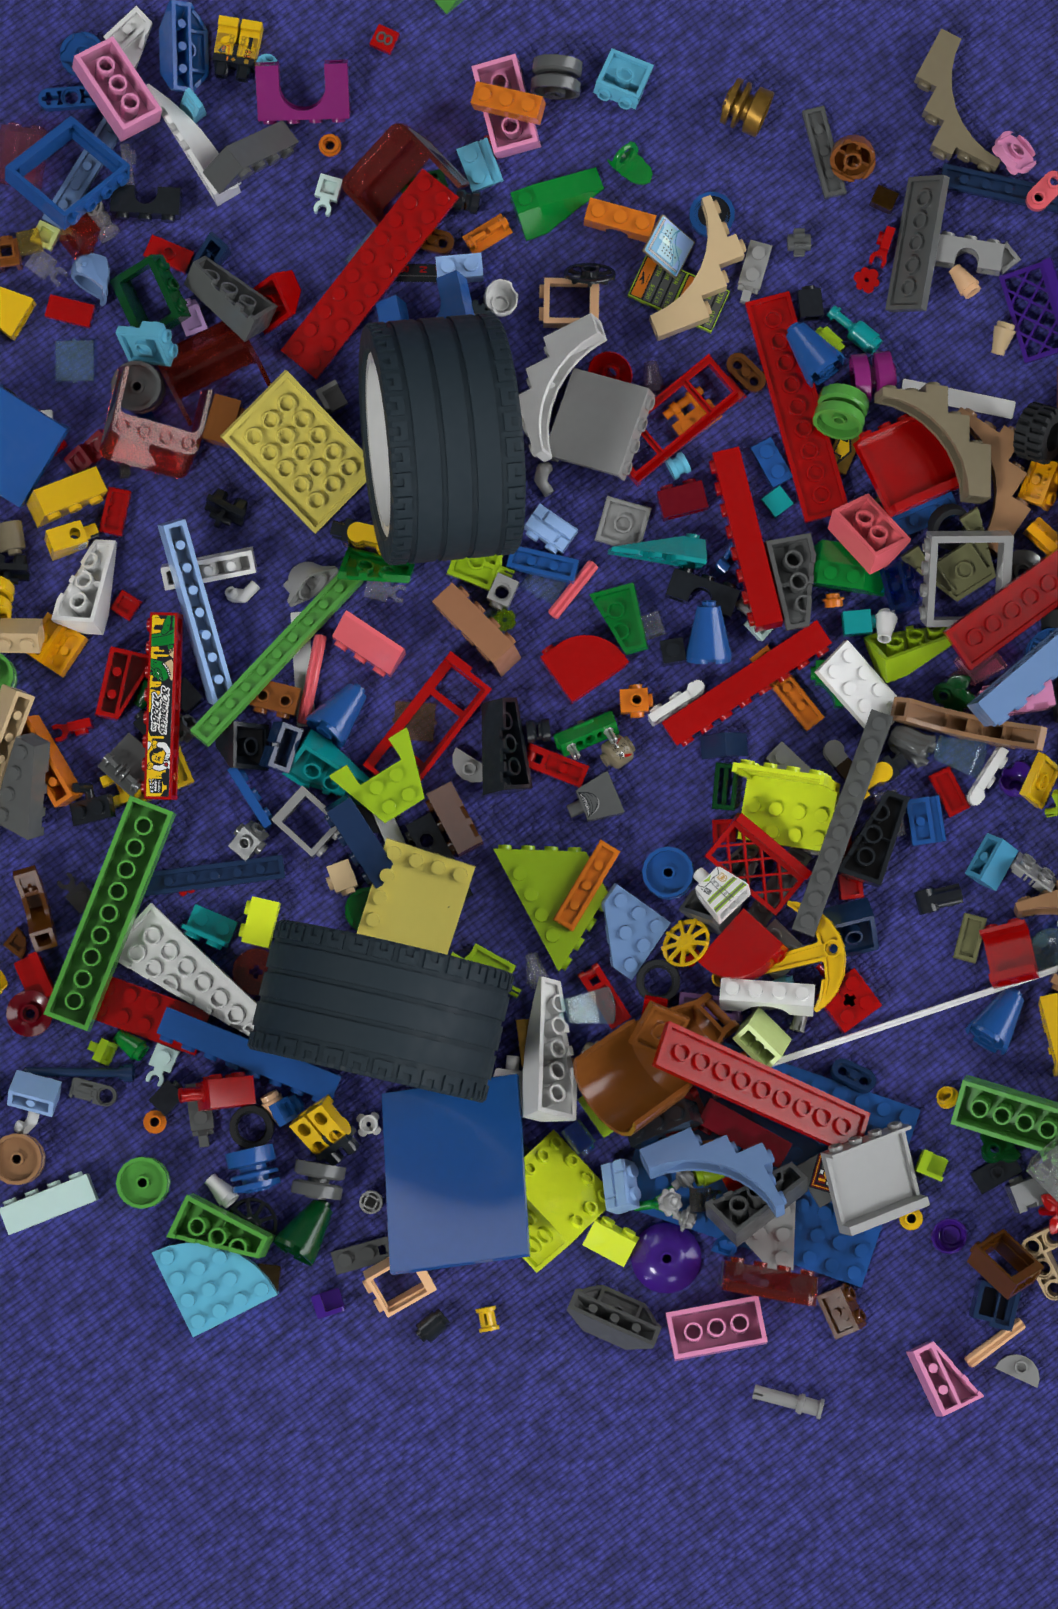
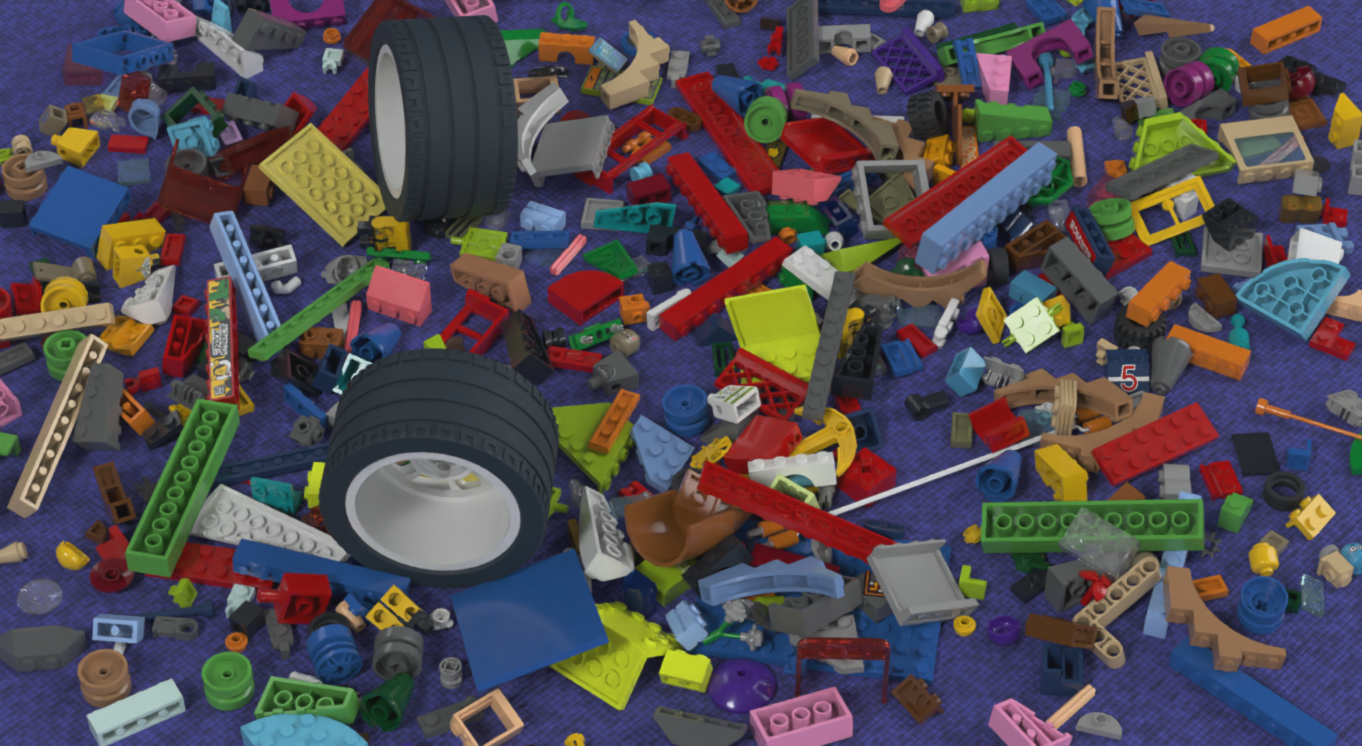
camera: 10 degrees left, 40 degrees down
(131, 1045) = (211, 588): green cone -> none
(541, 477) = (529, 193): light grey arm -> none

